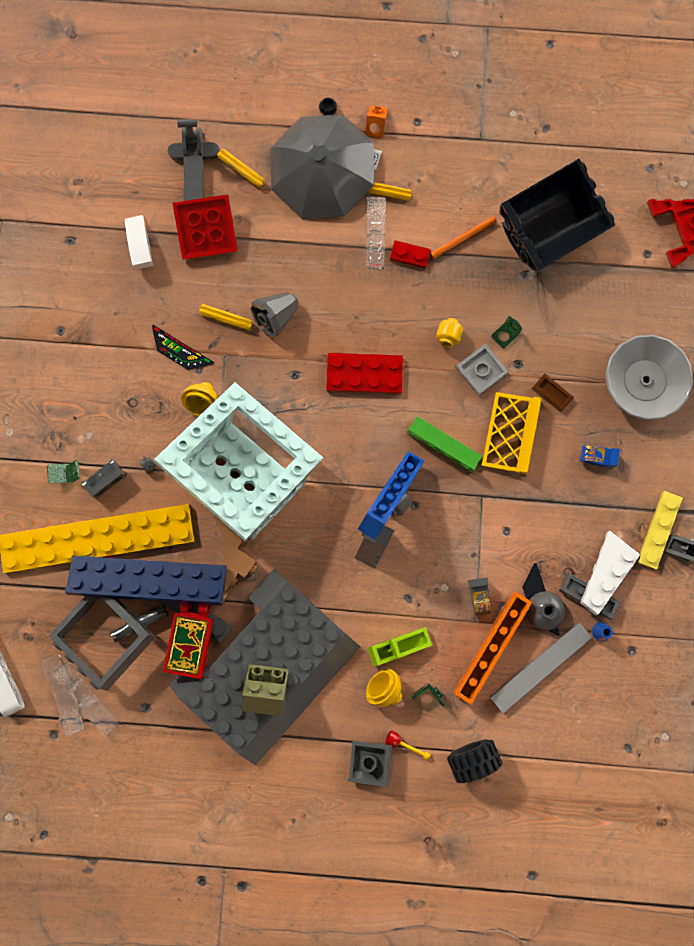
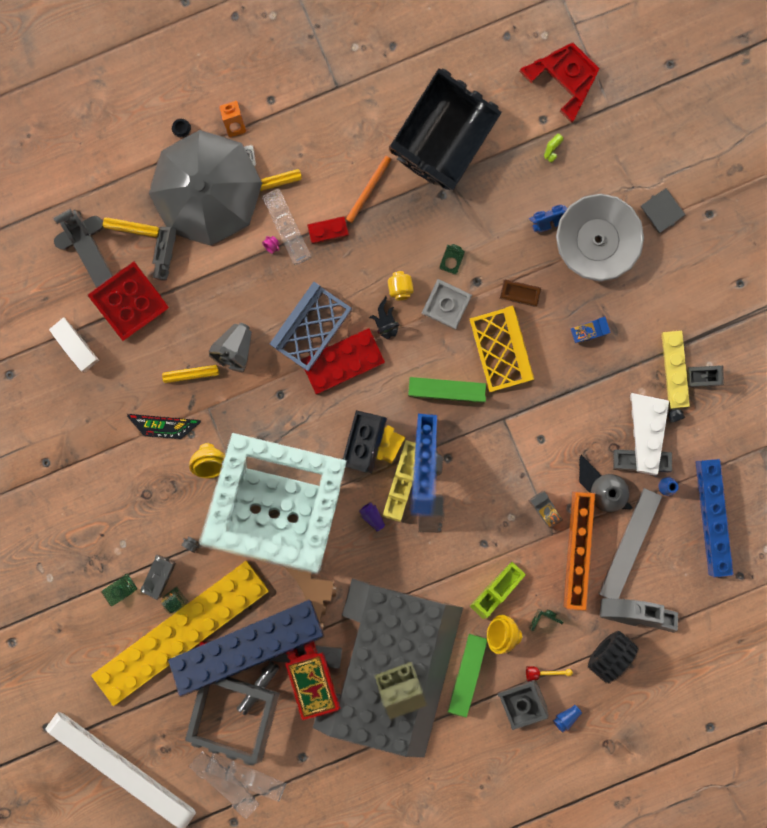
camera: 25 degrees left, 5 degrees up
(106, 506) = (173, 600): none -> clear green leg
(257, 202) = (163, 252): none -> dark grey hinge
(320, 521) = (372, 516): none -> dark purple cone
(332, 710) = (467, 675): none -> bright green slope
(346, 313) = (295, 321): none -> sand blue fence
(347, 451) = (364, 441): none -> black tile
(354, 241) = (271, 244): none -> dark pink plate
(358, 509) = (401, 484): none -> light yellow slope
(366, 465) = (389, 444): none -> yellow piece
(403, 797) = (567, 718): none -> blue cone
(419, 360) = (386, 324): none -> black piece
(518, 732) = (639, 612): none -> dark grey slope
(604, 338) = (542, 218): none -> blue hinge
(630, 681) = (714, 518): none -> blue brick
(640, 571) = (676, 414): none -> black hinge
(643, 279) = (551, 146): none -> lime arm

